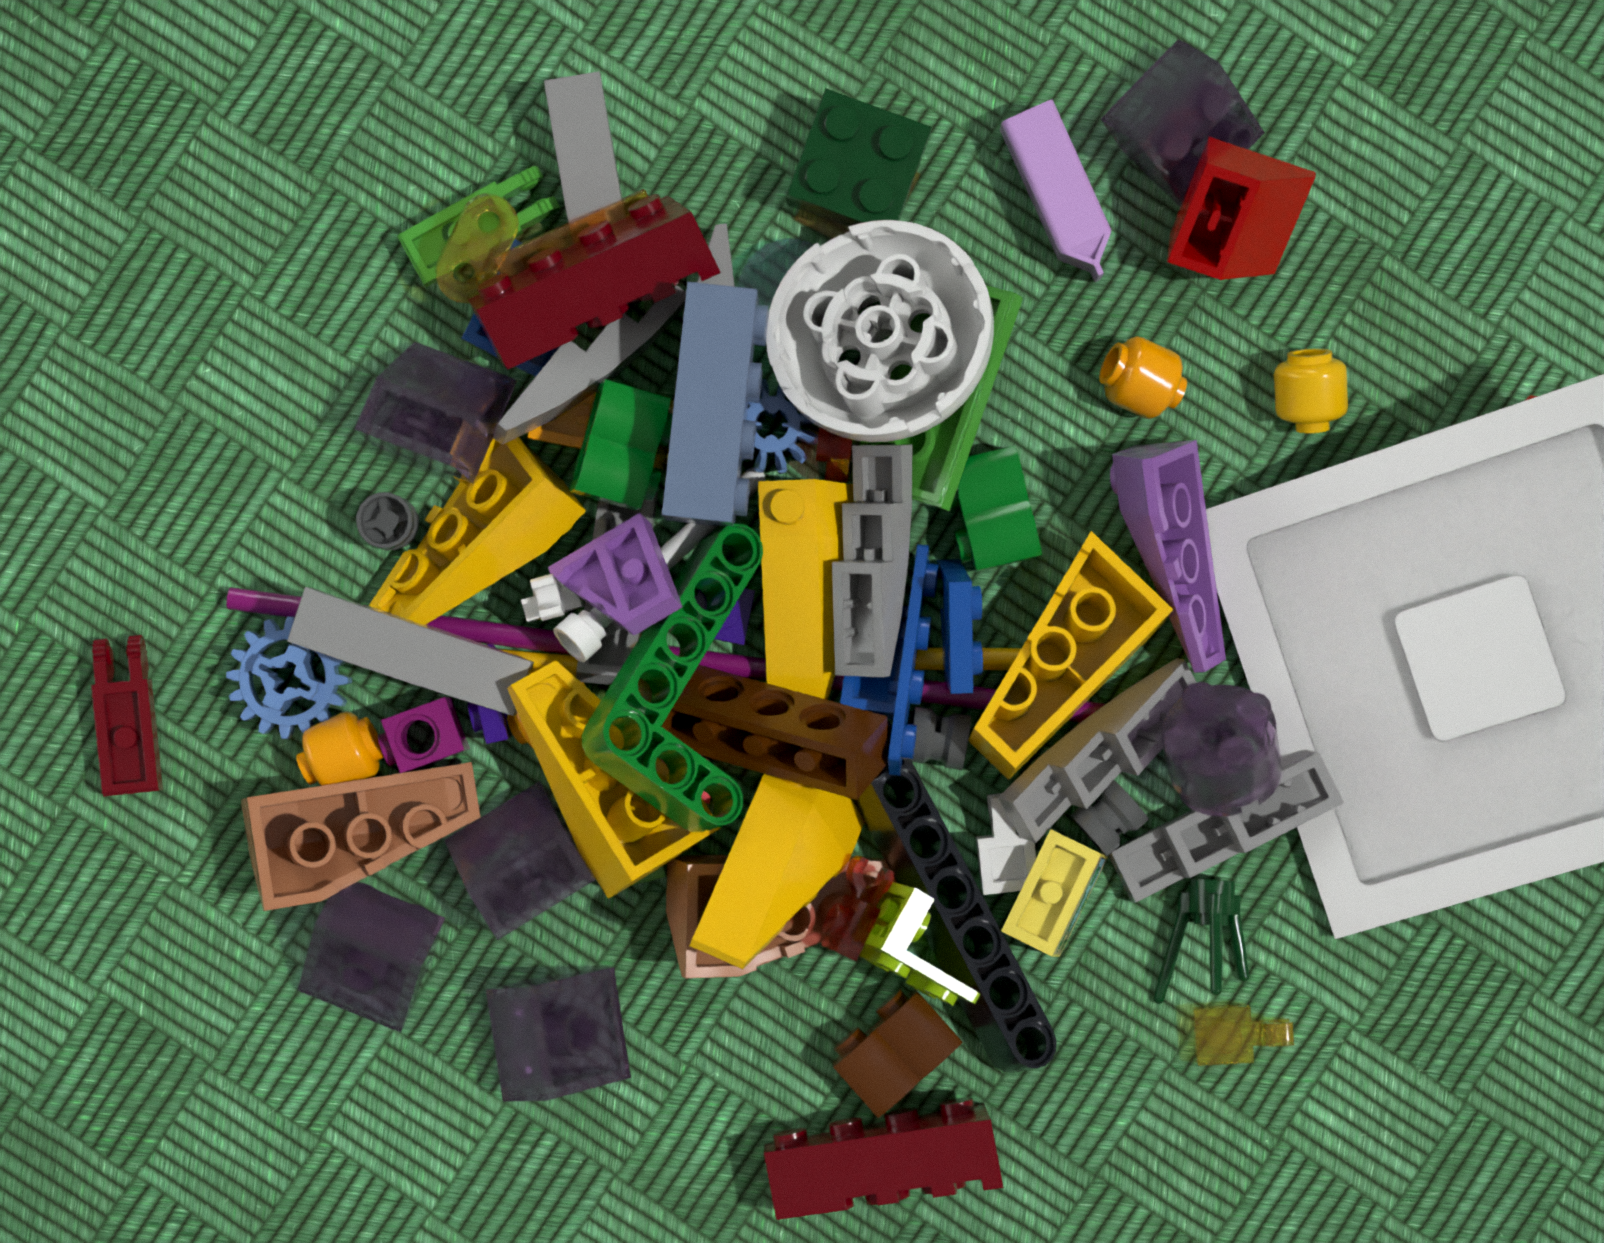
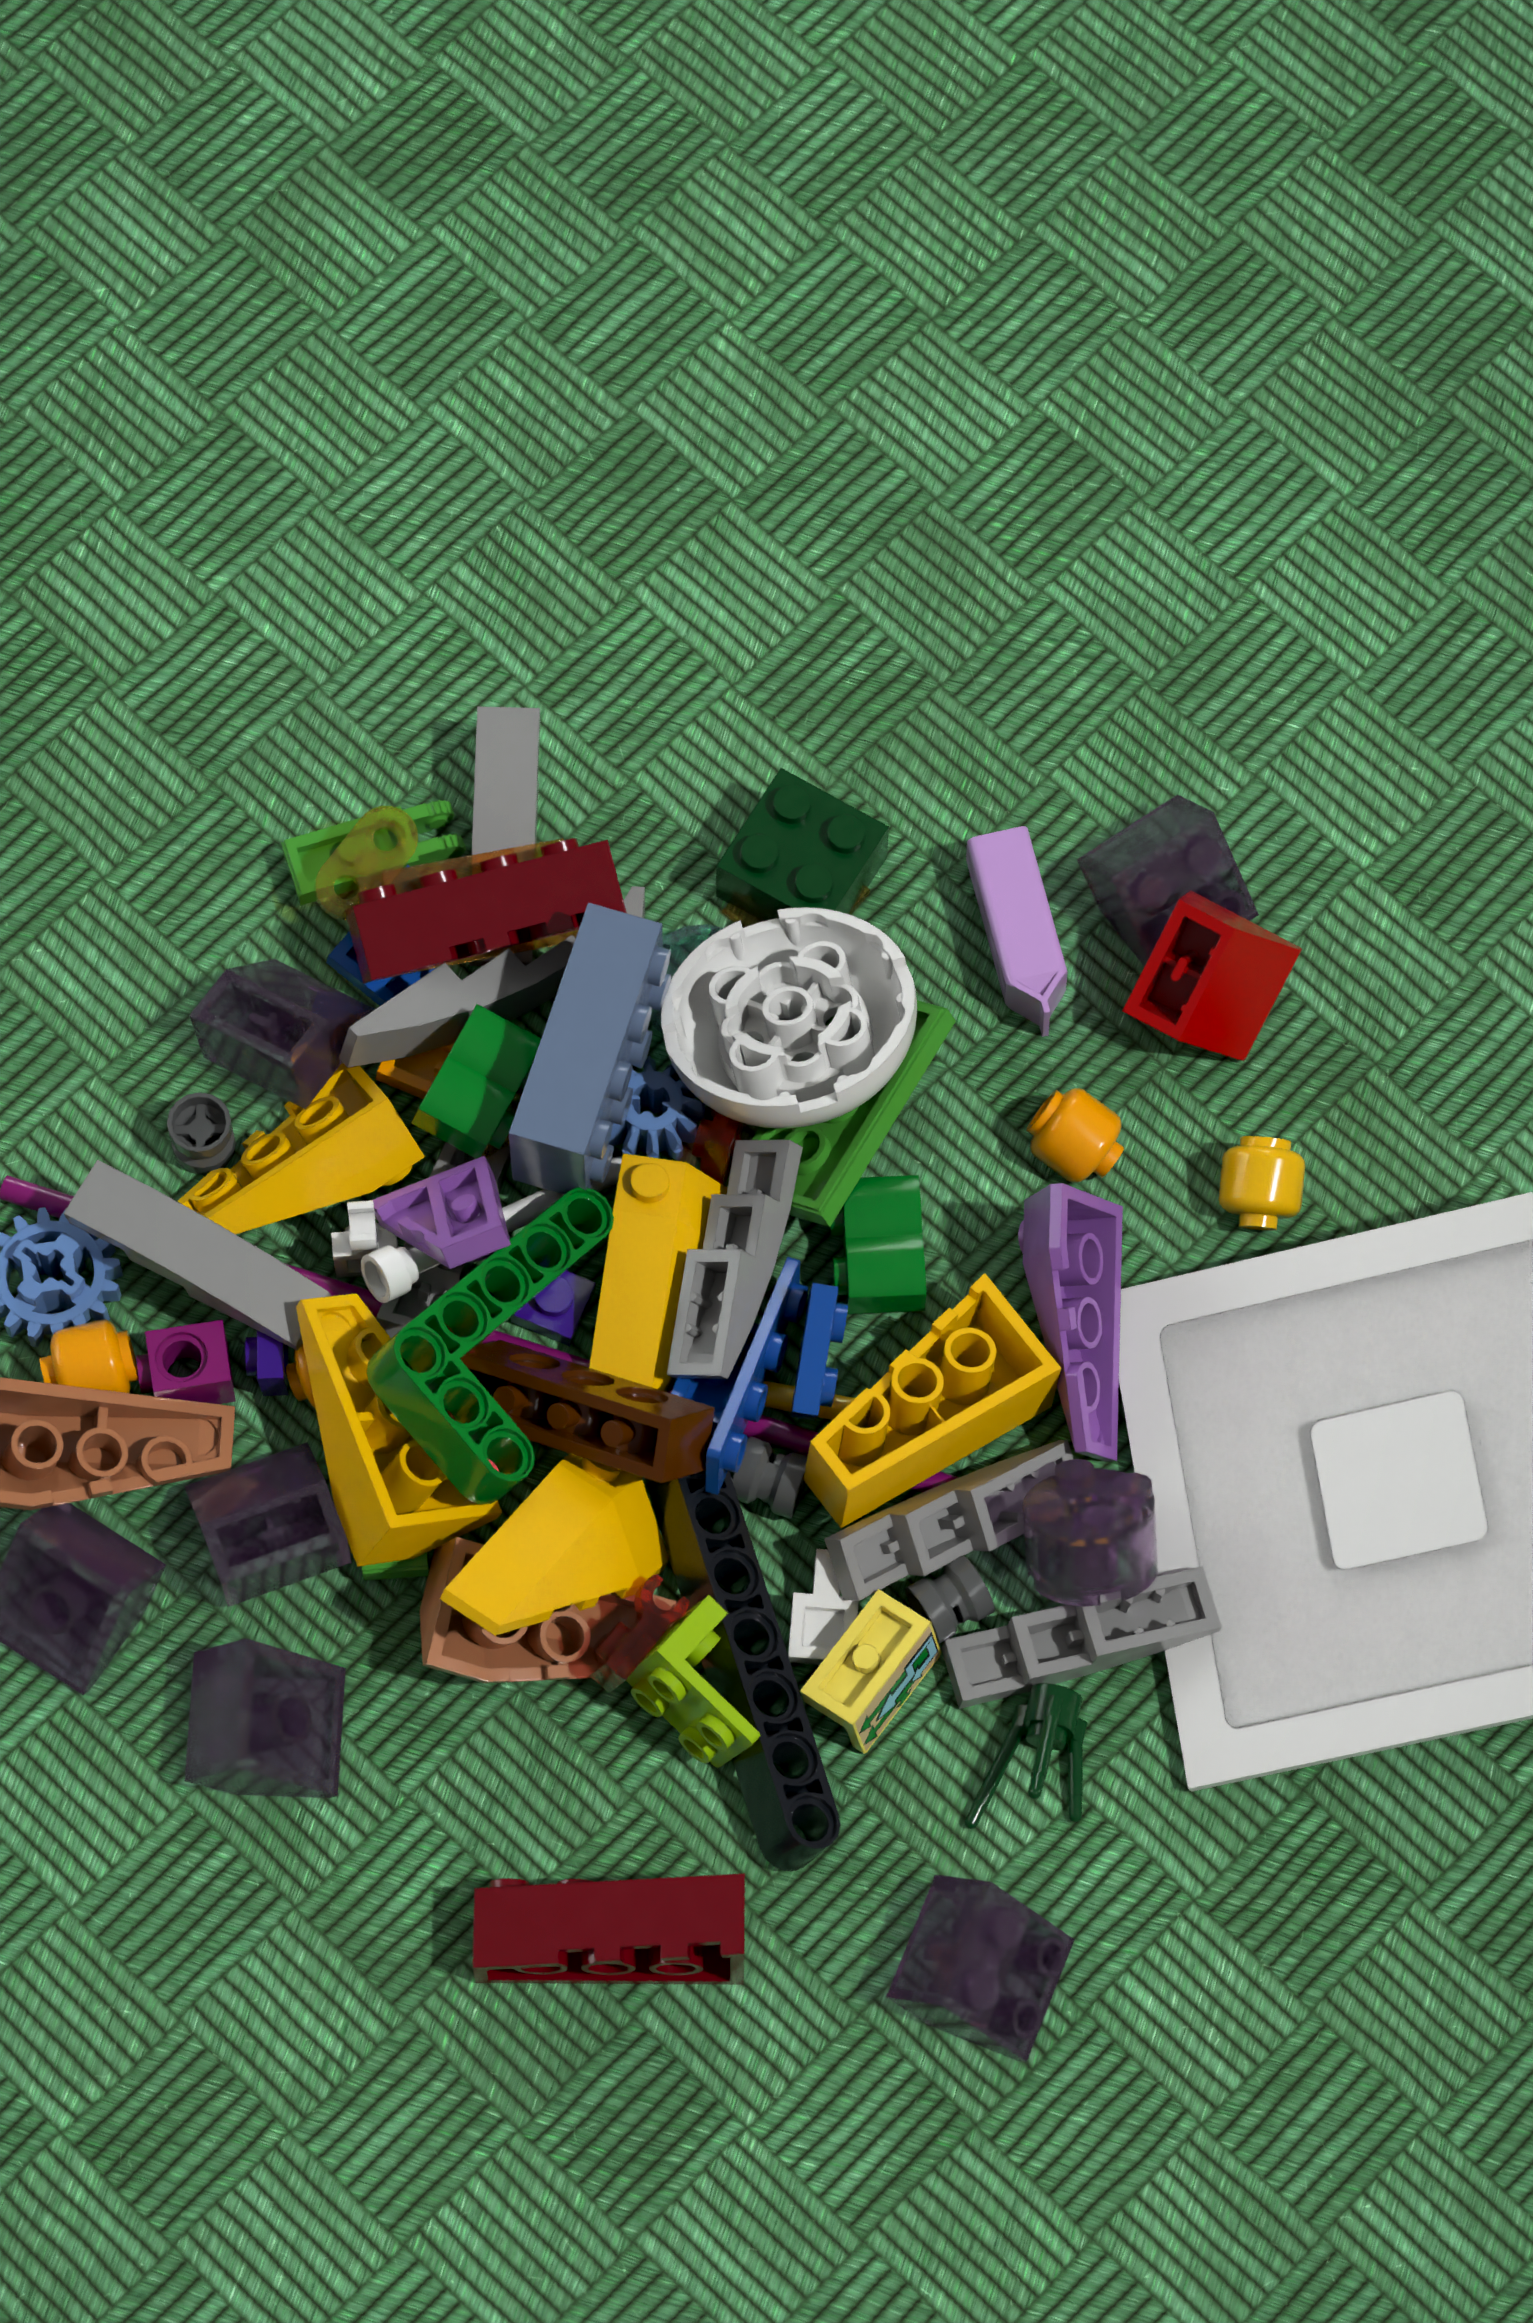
camera: 10 degrees right, 20 degrees down
(895, 1051) = (652, 1815): reddish brown brick -> none
(1190, 1128) = (980, 1966): none -> clear purple slope
(1228, 1034) = (1045, 1875): clear yellow plate -> none

